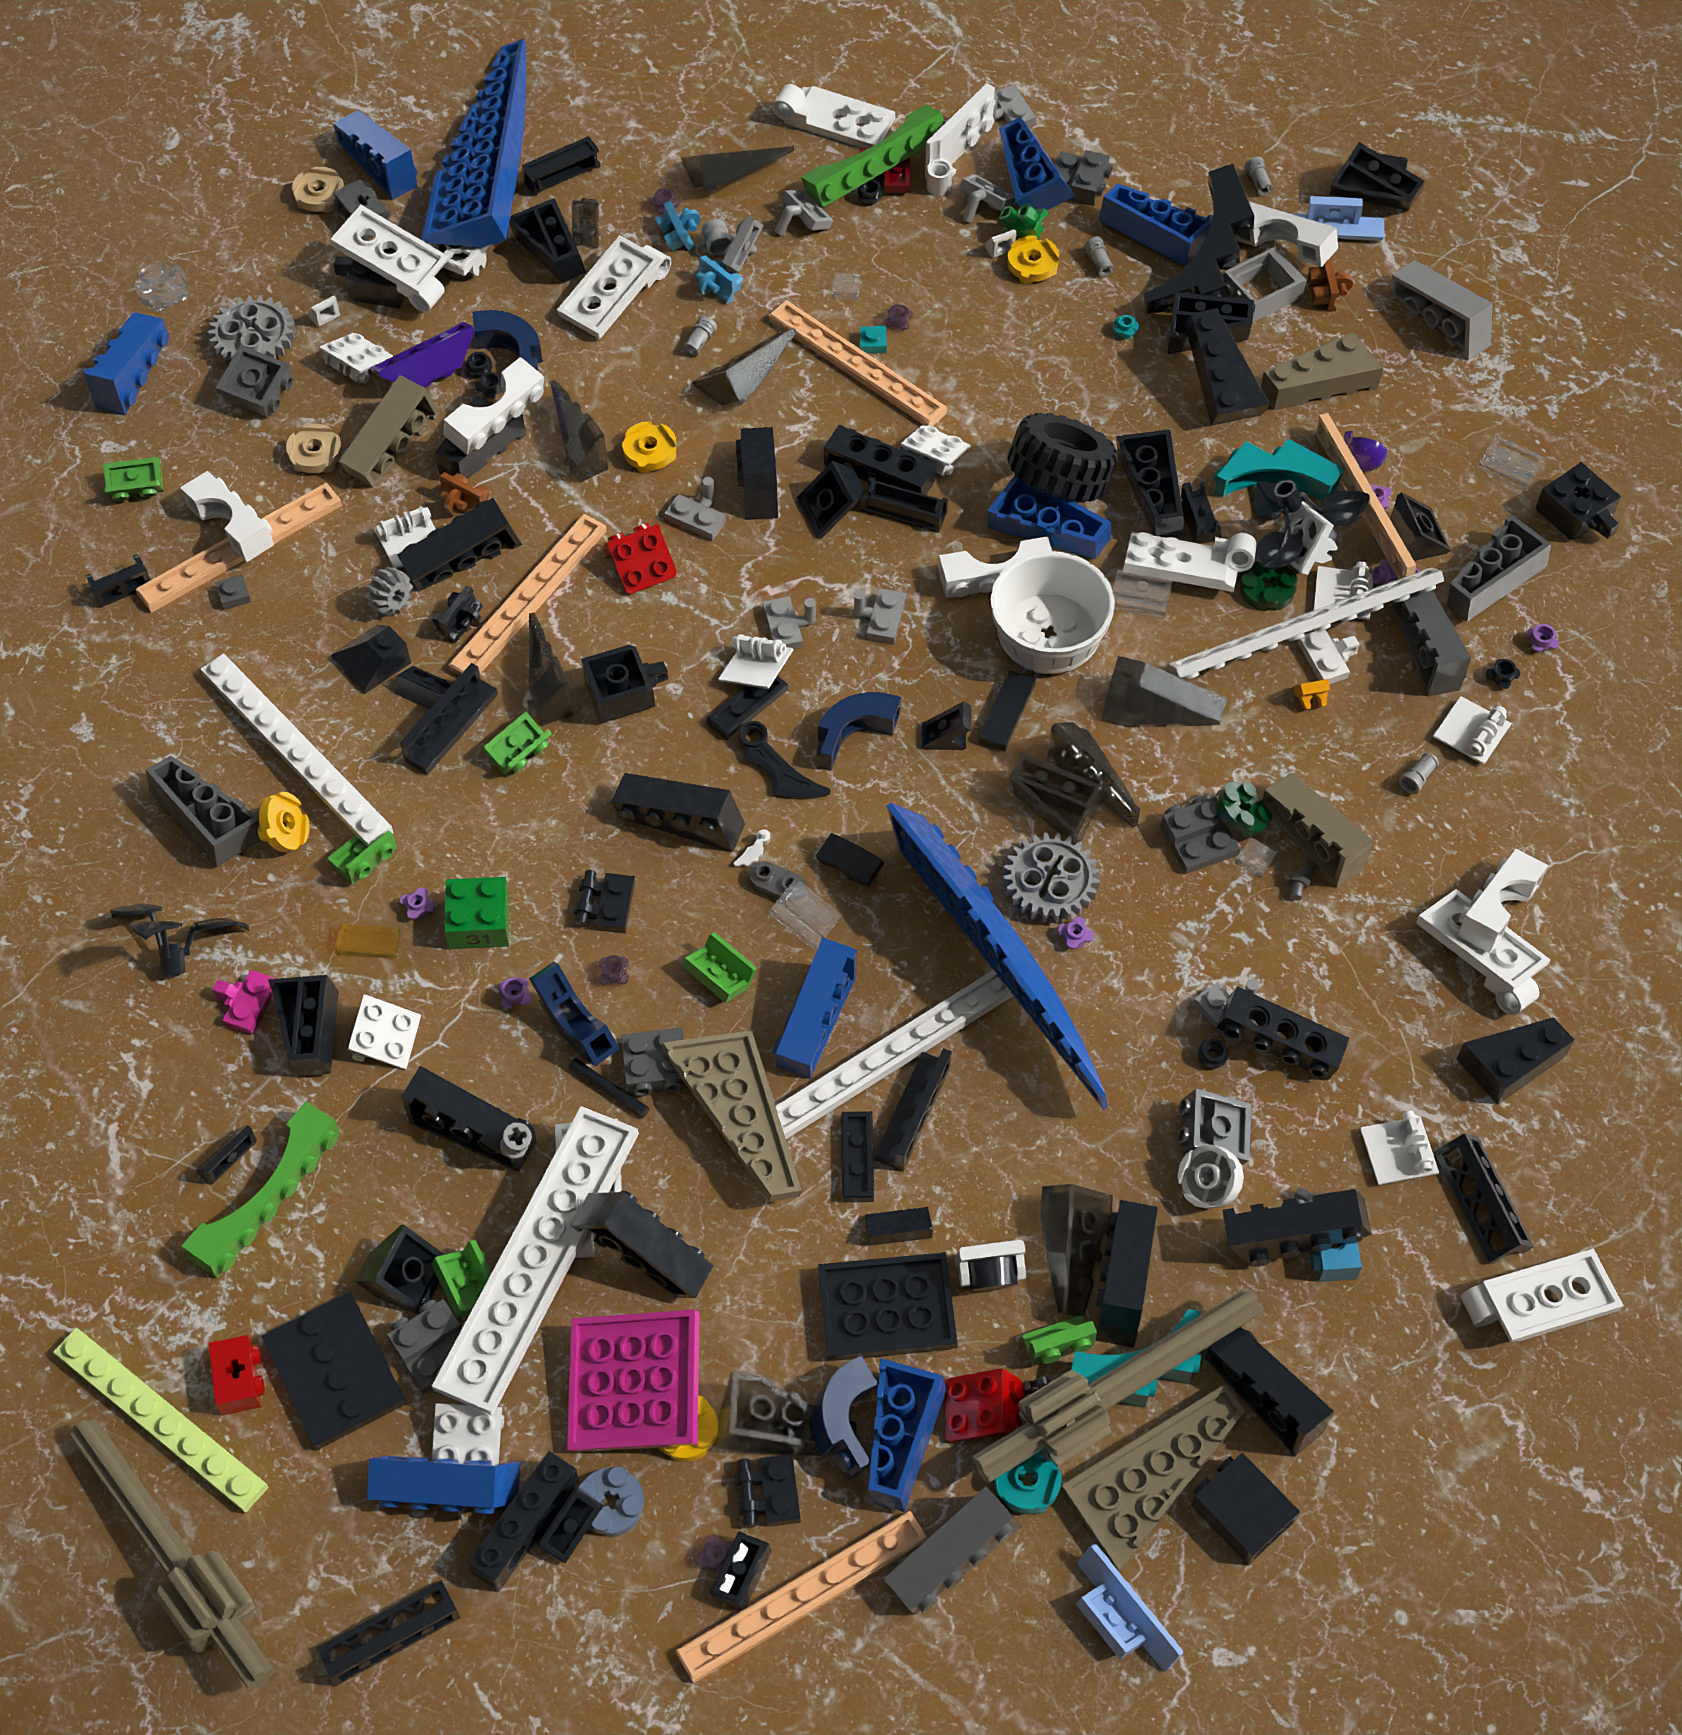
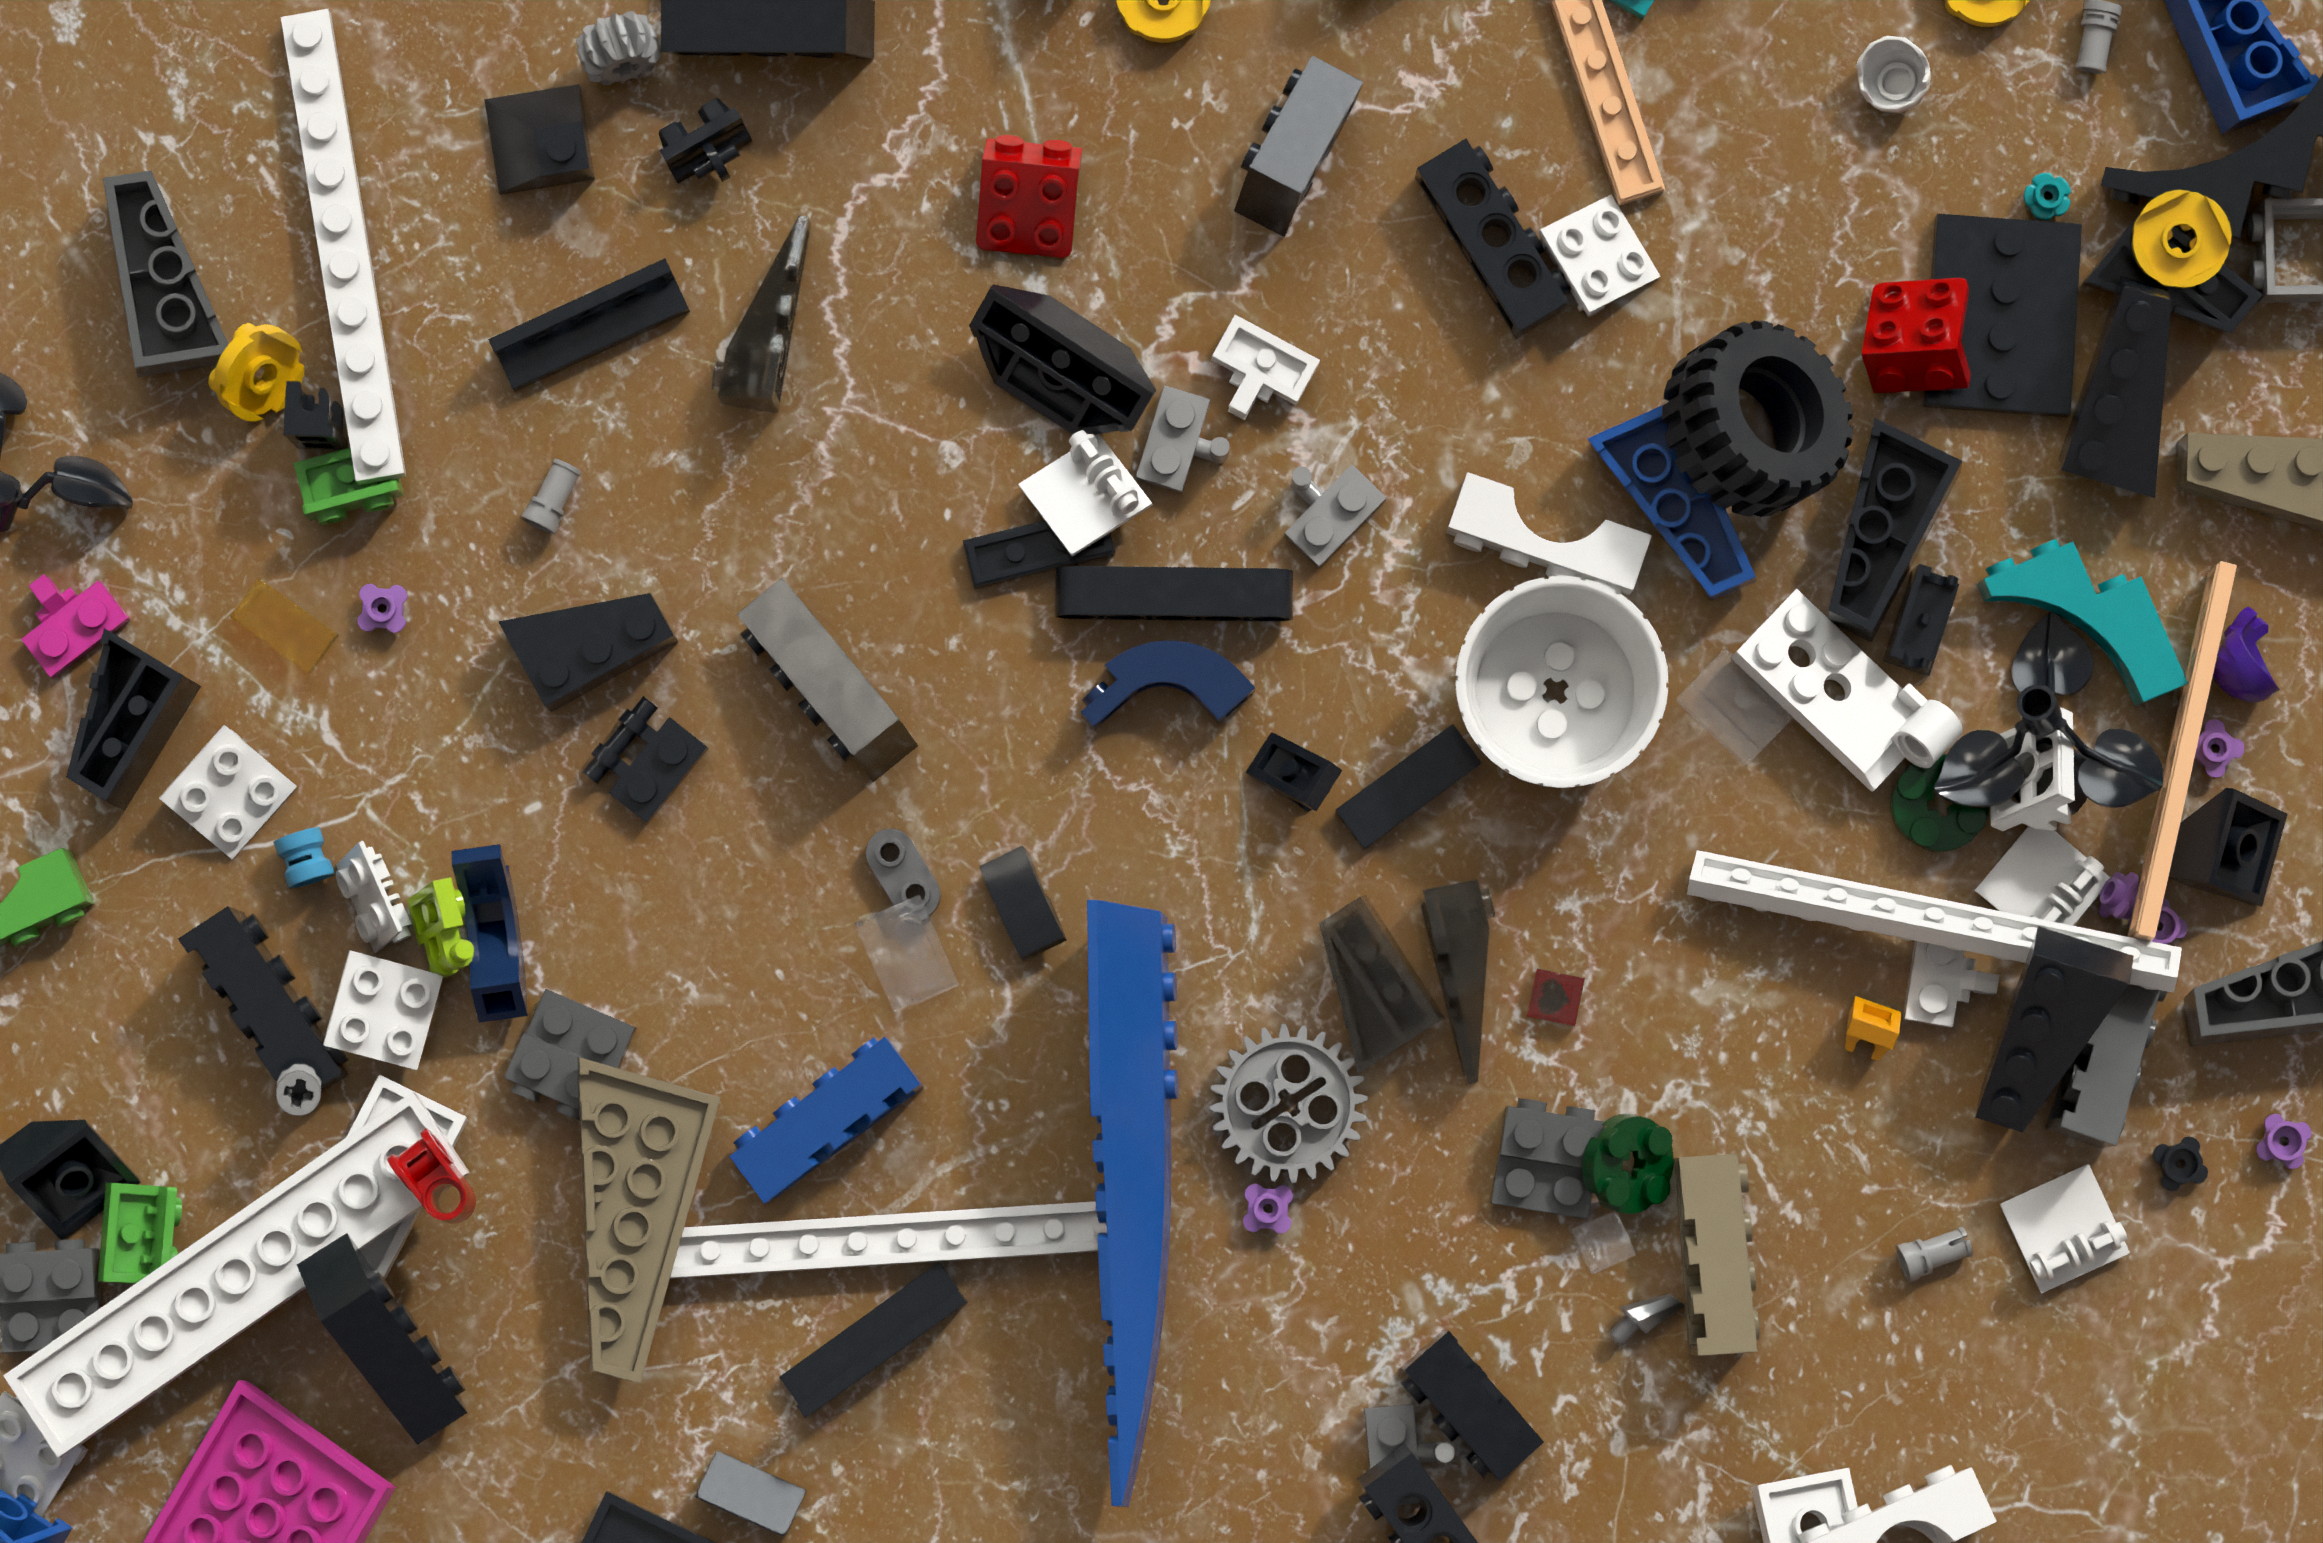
camera: 30 degrees right, 25 degrees up
(327, 827) = (309, 423): none -> black hinge
(421, 686) = (590, 241): black slope -> none
(445, 1040) = (300, 847): none -> dark azure wheel
(477, 912) = (453, 679): green brick -> none
(478, 812) = (546, 508): none -> light grey pin
(497, 1035) = (360, 879): none -> white hinge
(510, 985) = (434, 819): medium lavender plate -> none
(516, 743) = (663, 427): bright green bracket -> none
(529, 595) = (828, 165): light nougat tile -> none
(538, 1087) = (383, 1010): none -> white hinge
(539, 1022) = (436, 918): none -> lime plate
(540, 858) = (587, 644): none -> black wedge
(609, 1087) = (487, 1056): black bar -> none
(610, 963) = (592, 865): plate -> none
(616, 1133) = (429, 1170): none -> red piece
(621, 682) = (892, 398): black hinge -> none
(697, 516) = (1161, 164): light grey plate -> none
(704, 616) = (1060, 362): none -> black wedge
(721, 968) = (737, 970): bright green bracket -> none
(754, 852) = (902, 804): white piece -> none
(785, 779) = (1017, 709): black piece -> none
(805, 569) = (1262, 366): none -> white hinge
(830, 497) = (1378, 263): black slope -> none
(830, 685) = (1174, 593): none -> black beam
(857, 1157) = (758, 1360): black tile -> none
(904, 505) = (1482, 337): black container -> none
(1019, 309) = (1893, 74): none -> white hair
(1111, 401) = (1916, 336): none -> red bracket
(1141, 381) = (2016, 314): none -> black plate
(1148, 763) = (1555, 997): none -> clear smoke tile
(1153, 696) = (1634, 901): clear smoke wedge -> none
(1200, 279) = (2208, 248): none -> yellow plate
(1216, 1046) = (1346, 1516): black plate -> none
(1237, 958) = (1469, 1406): none -> black wedge
(1395, 628) = (2052, 1016): none -> black wedge

